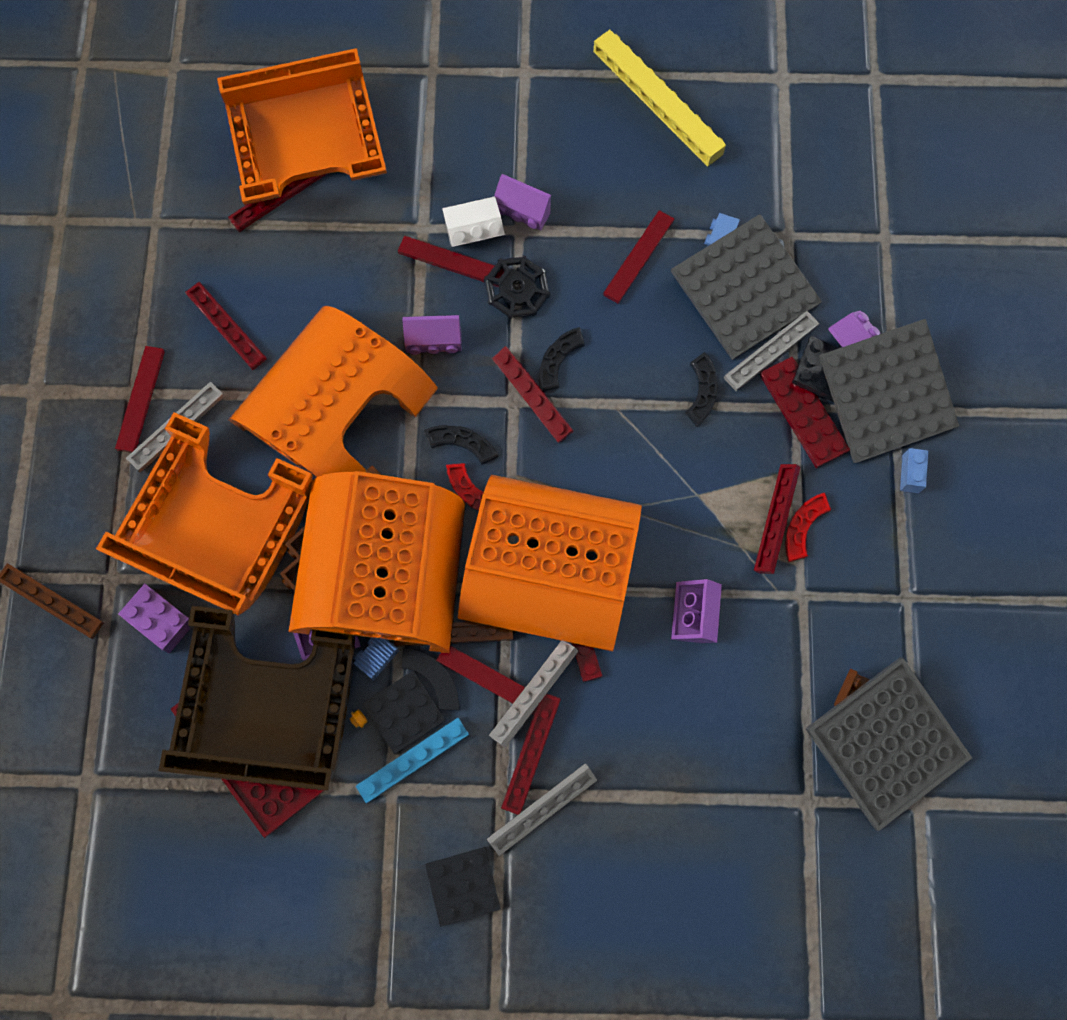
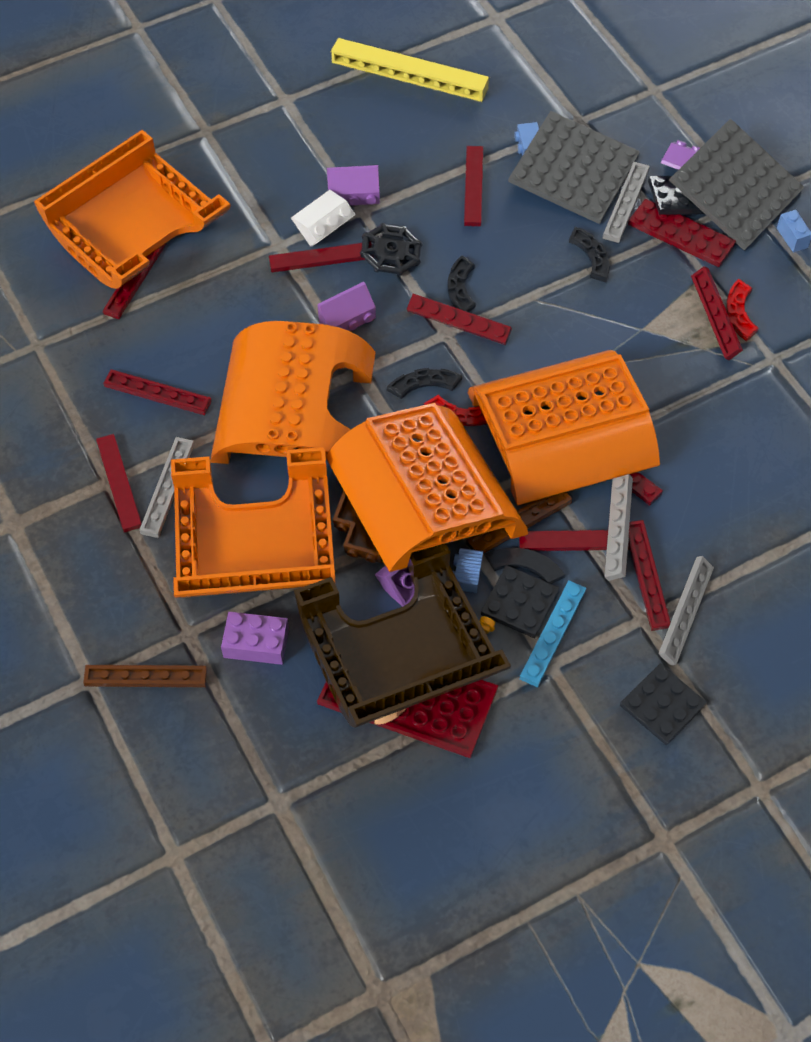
camera: 30 degrees left, 15 degrees down
(696, 611) = (702, 406): medium lavender slope -> none

